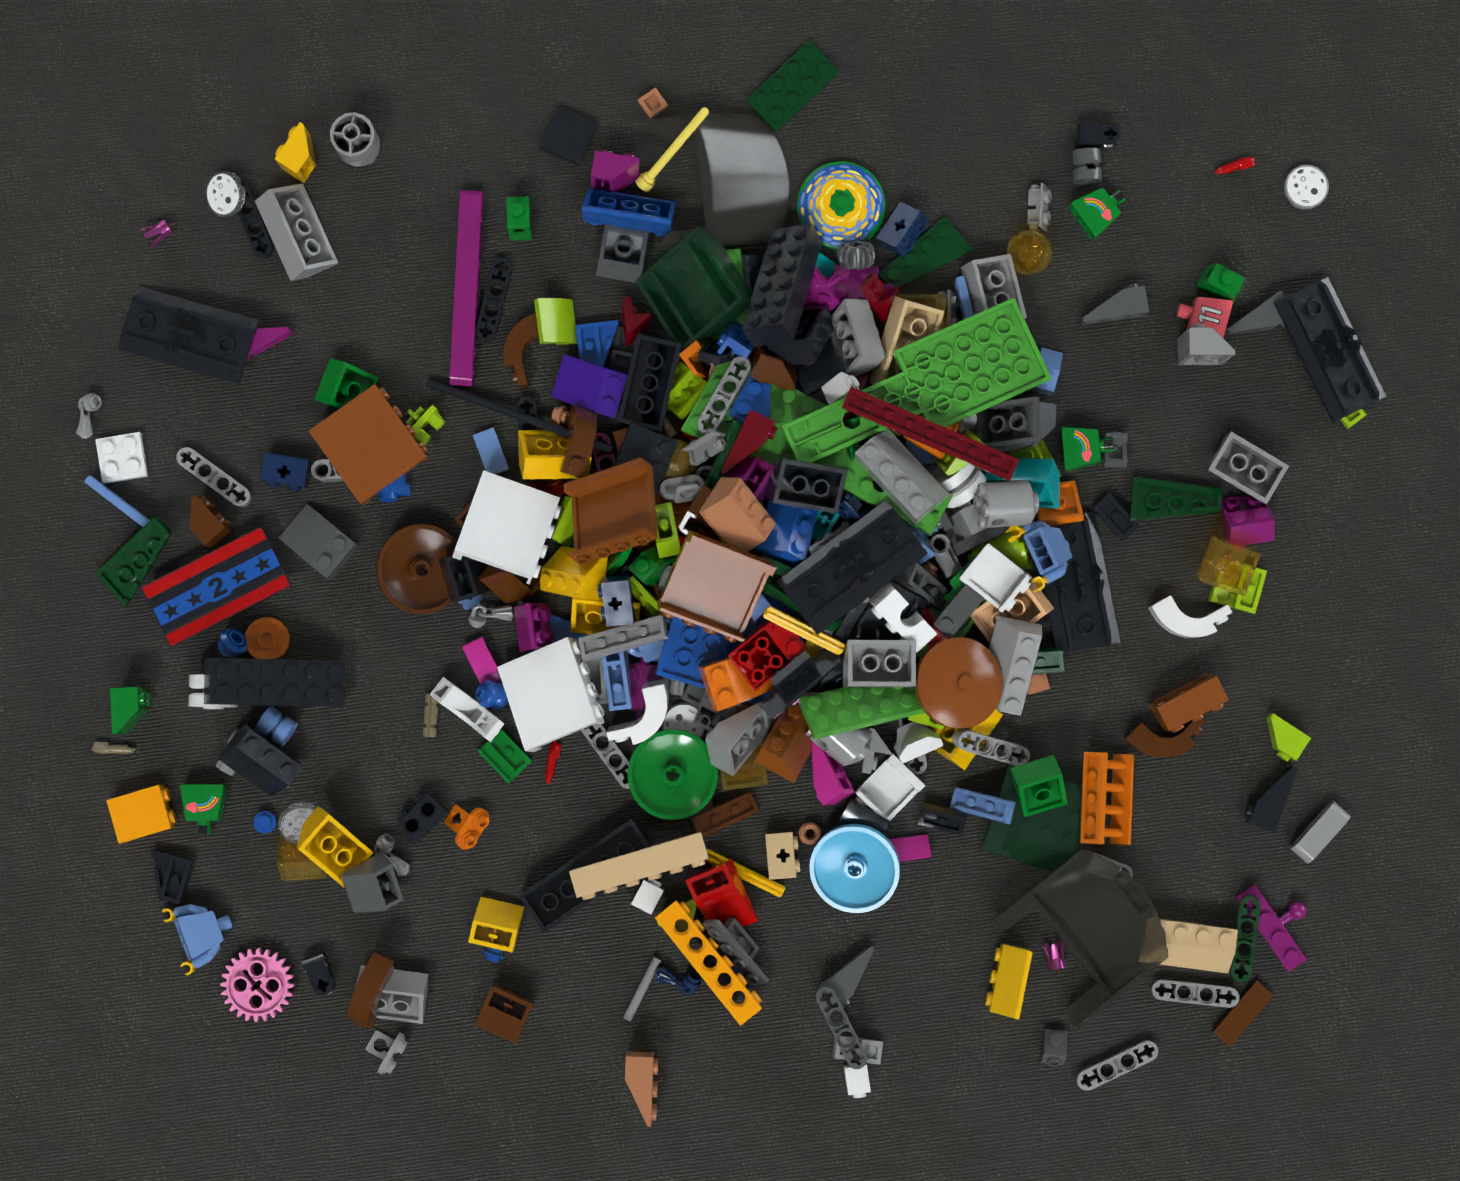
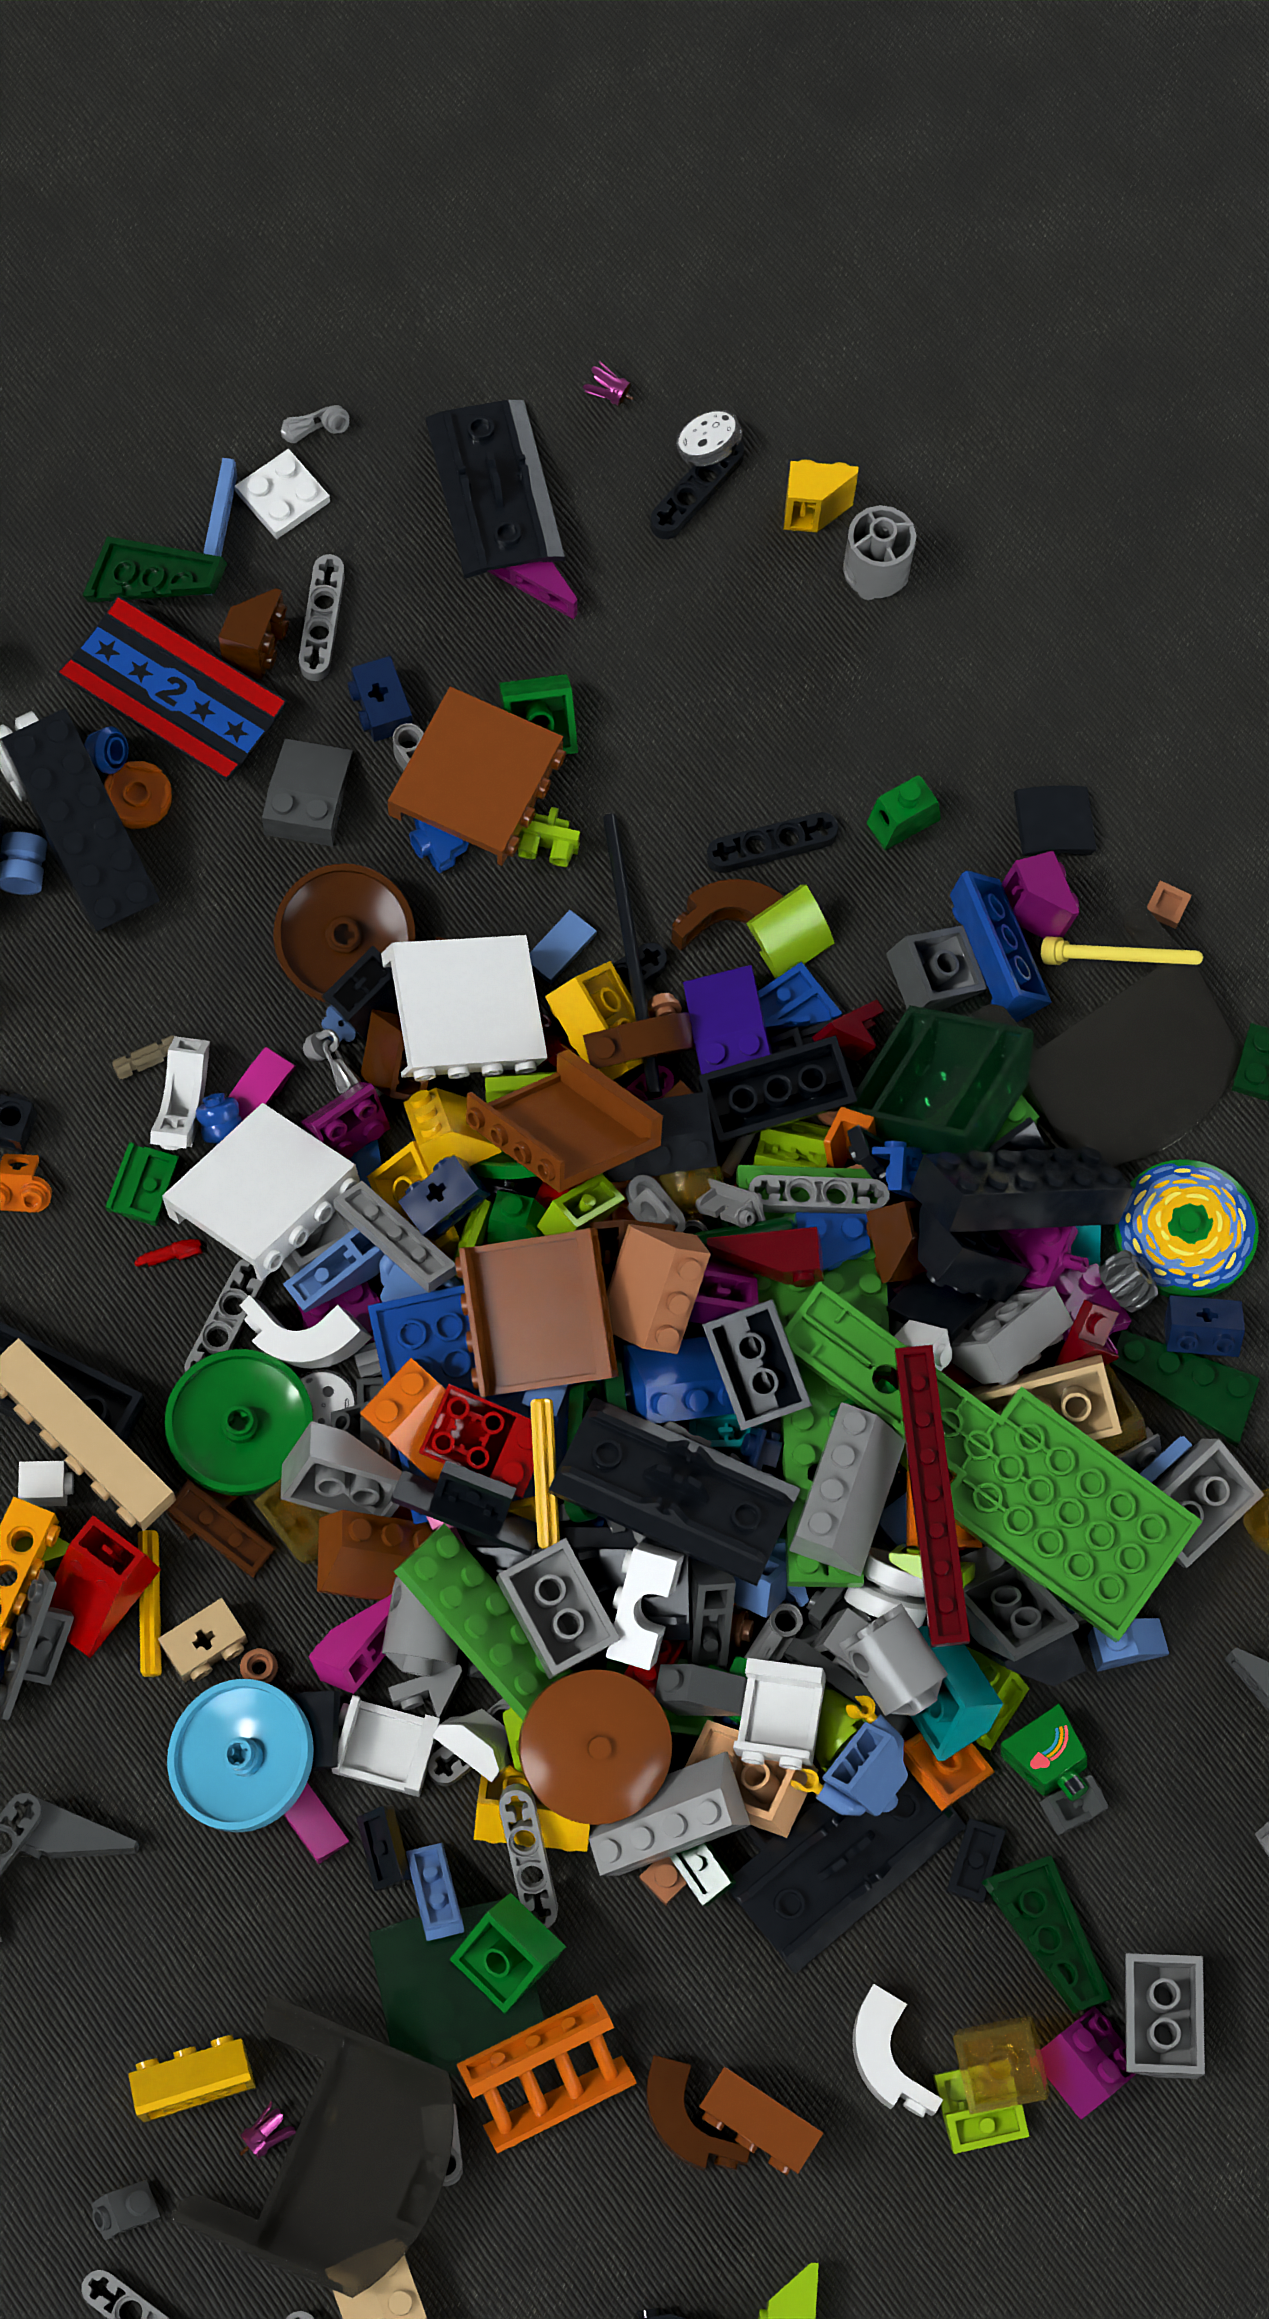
camera: 60 degrees right, 15 degrees down
(296, 231) = (713, 548): light grey slope -> none
(466, 288) = (766, 797): magenta beam -> none

